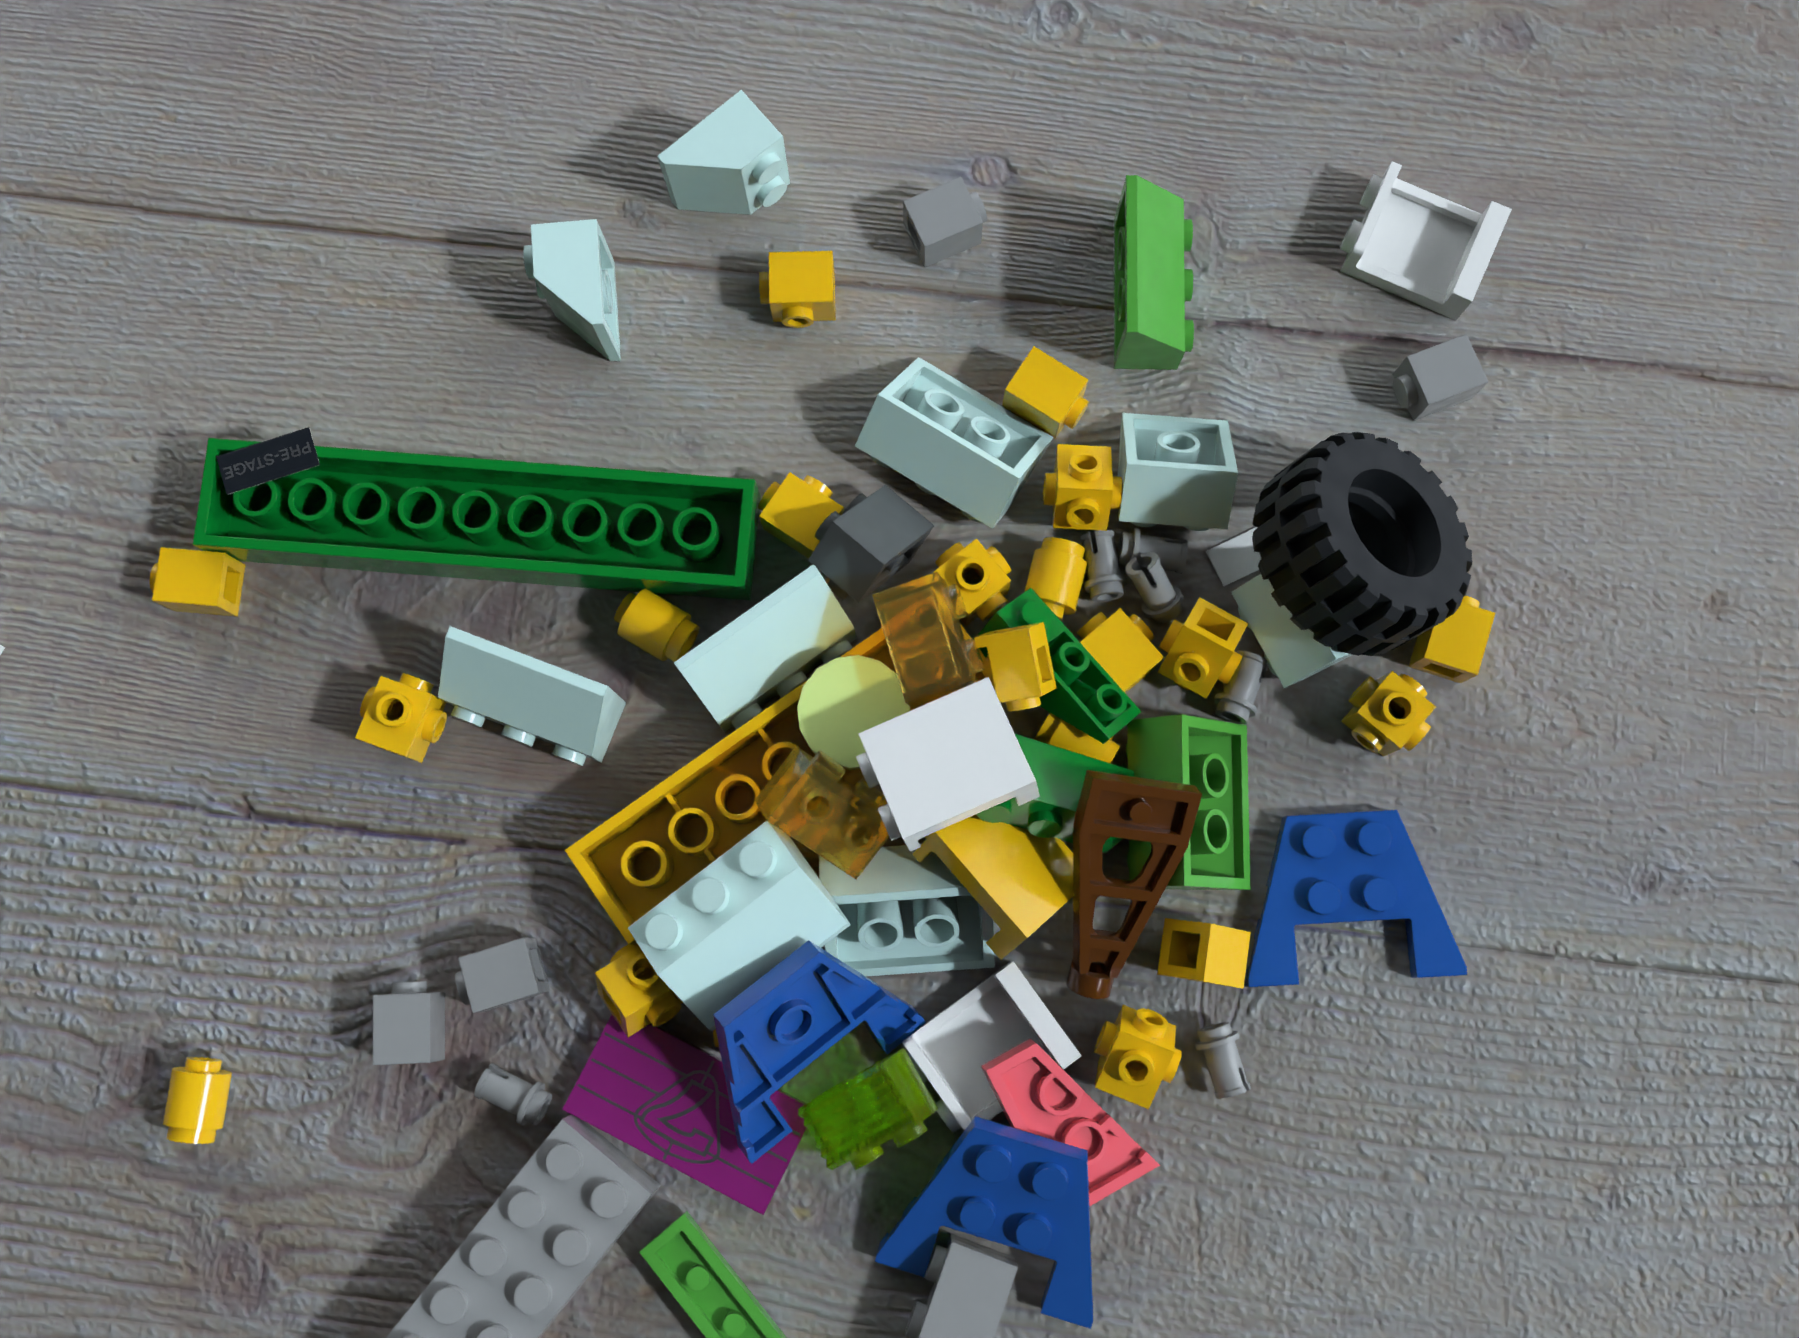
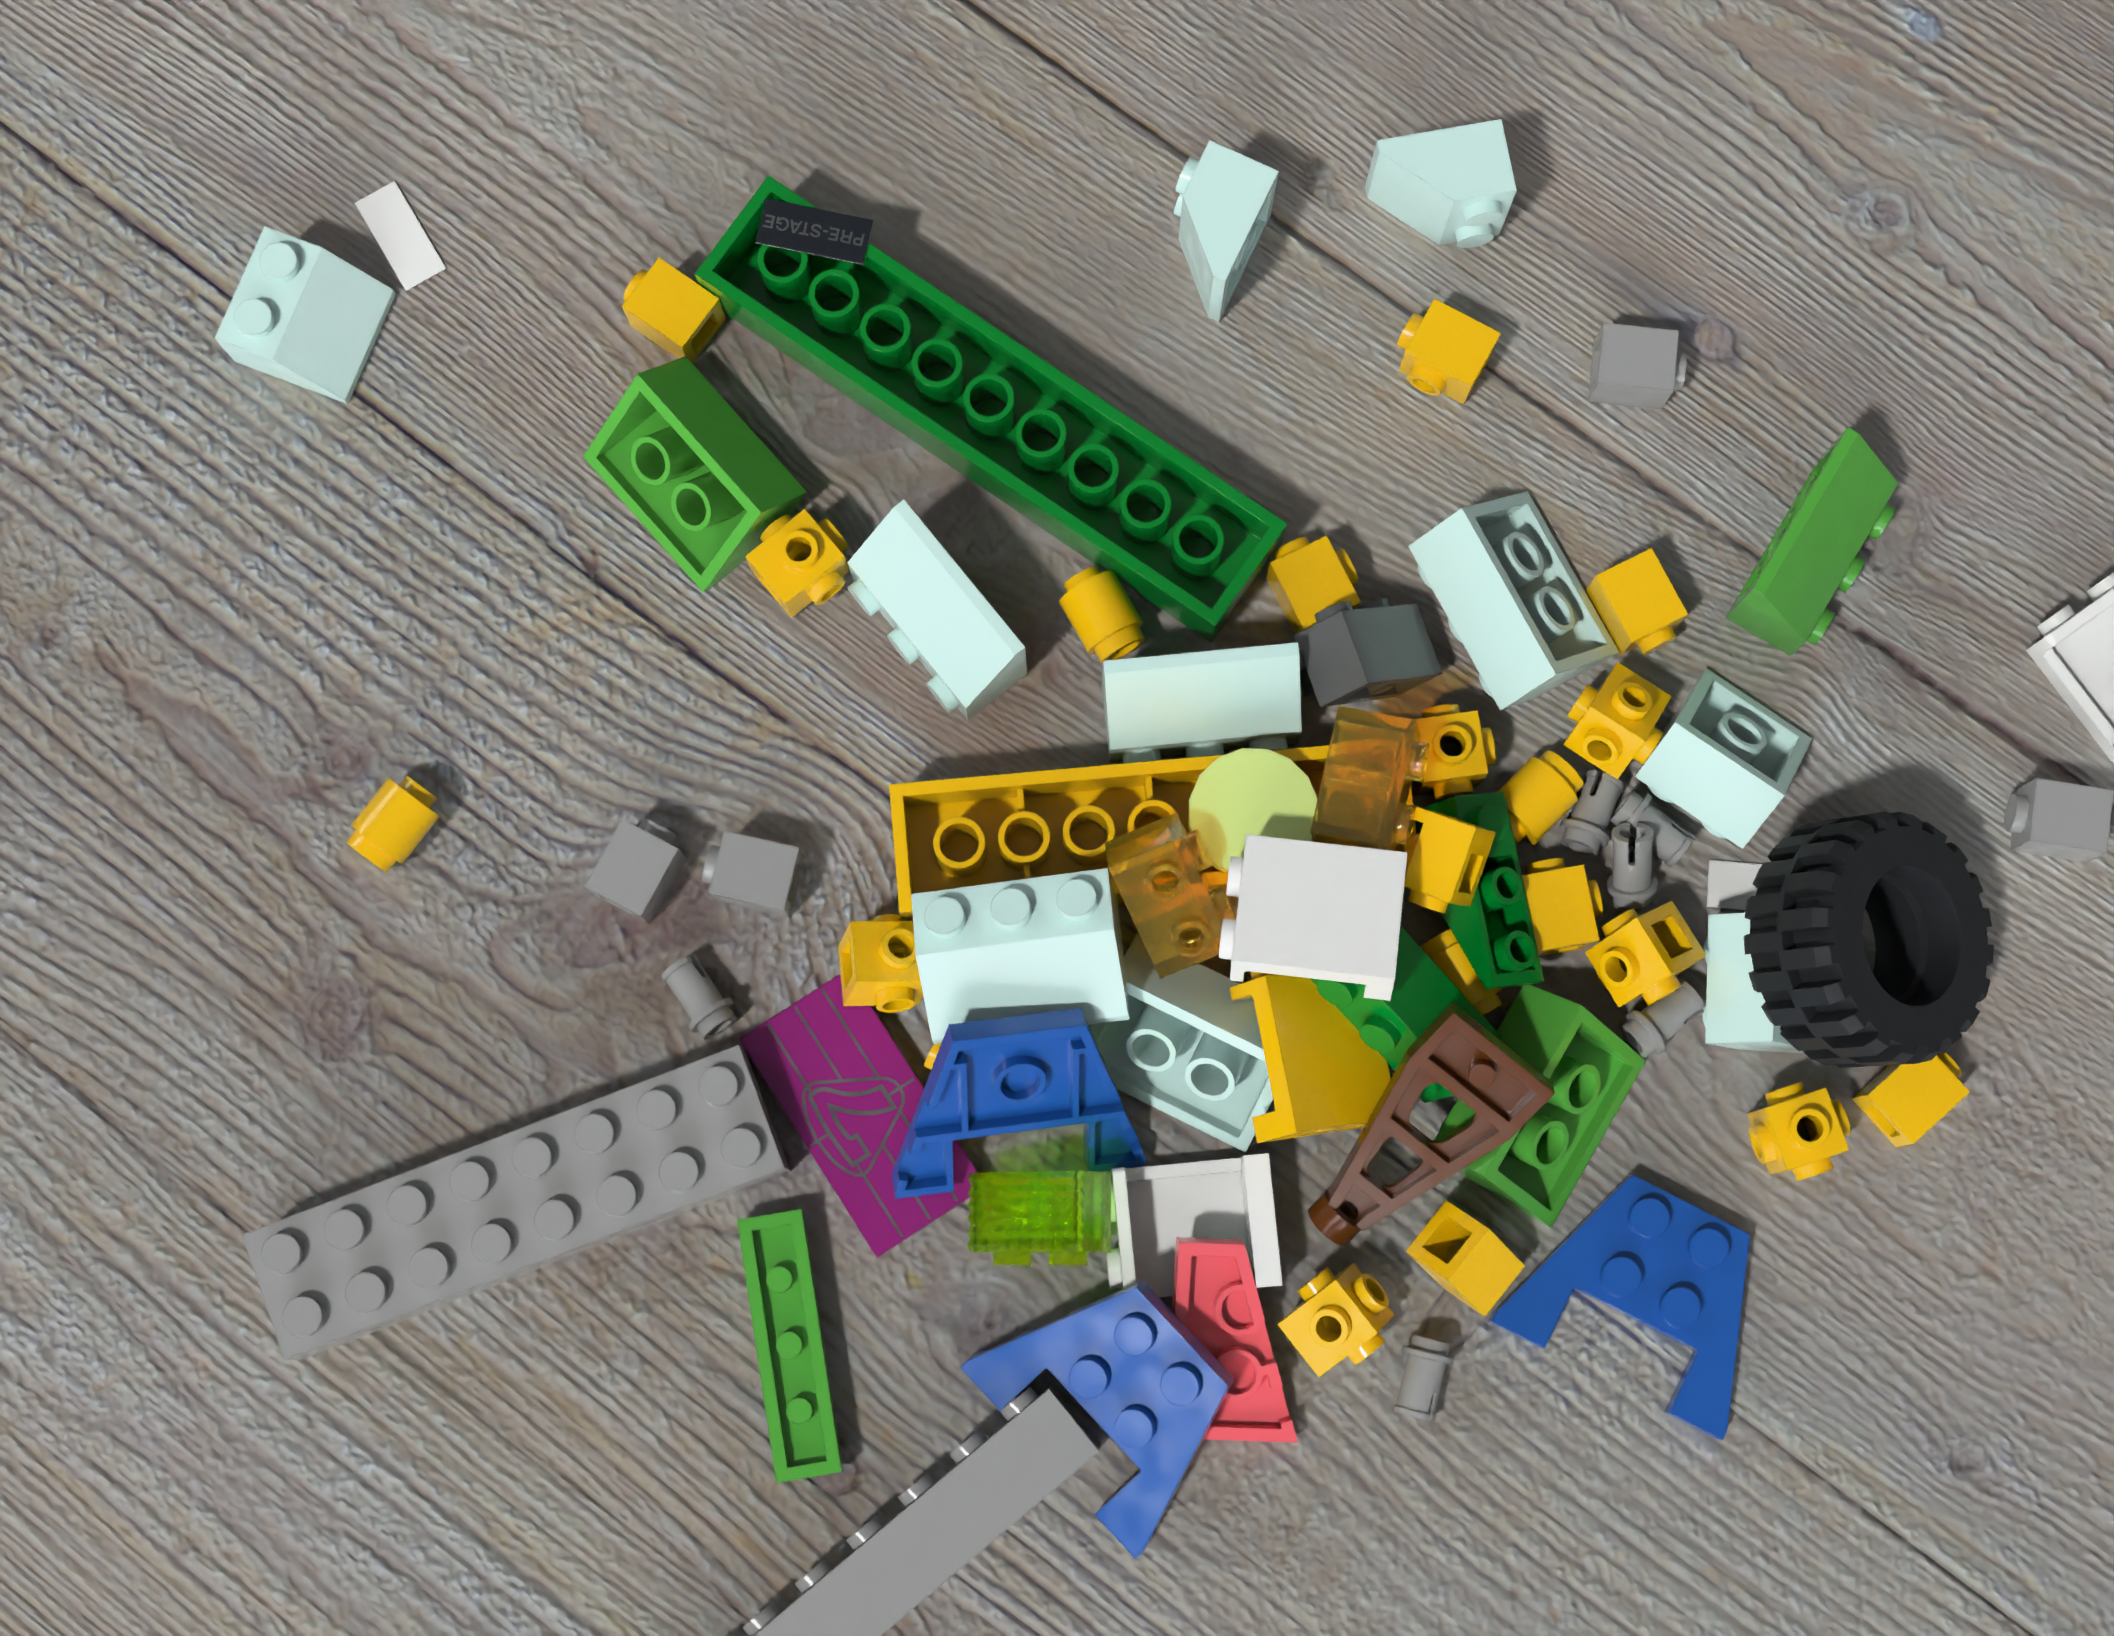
camera: 30 degrees right, 0 degrees up
(279, 694) = (692, 471): none -> bright green slope

